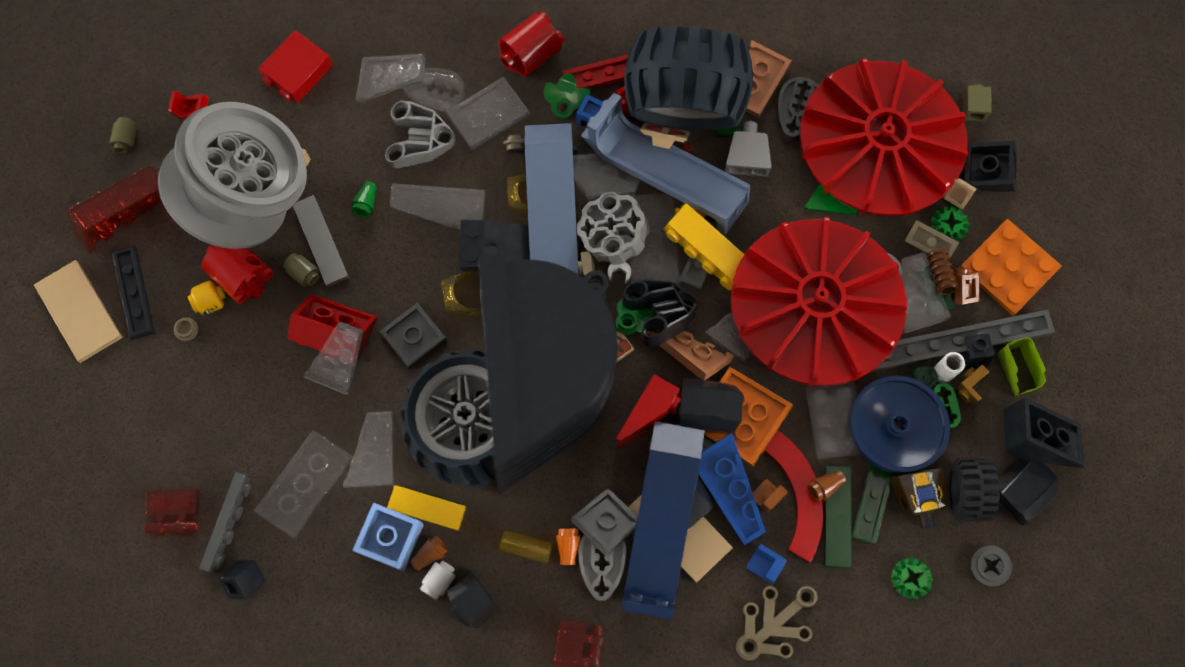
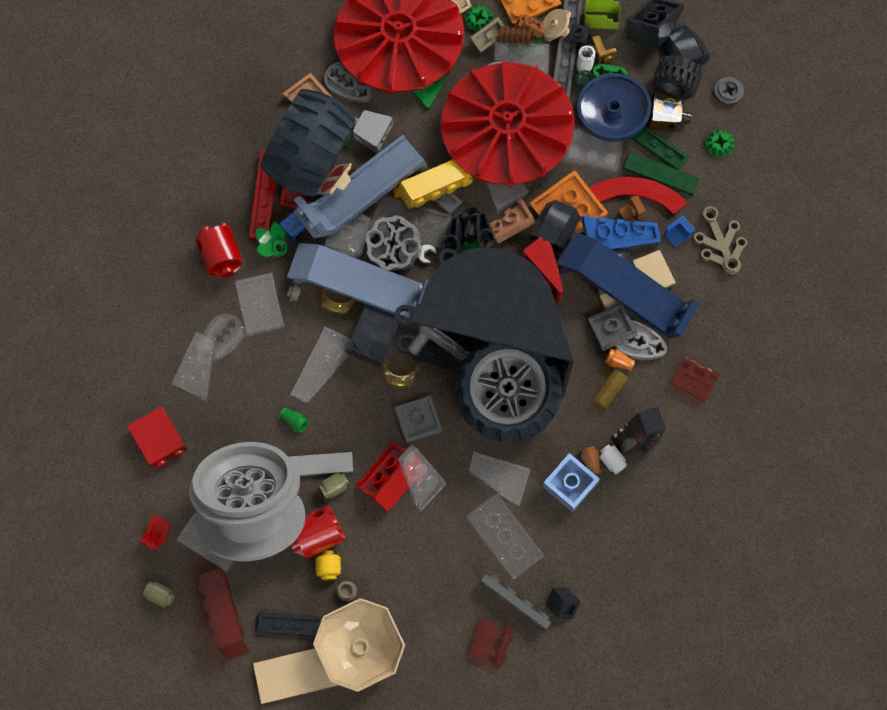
camera: 70 degrees left, 0 degrees up
(114, 359) = (359, 645): none -> tan rock
(423, 136) = (242, 355): light grey connector -> none
(426, 508) = (555, 451): yellow tile -> none
(586, 264) = (415, 273): dark tan plate -> none
(824, 486) = (640, 173): dark orange cone -> none
(982, 316) = (556, 24): none -> tan piece

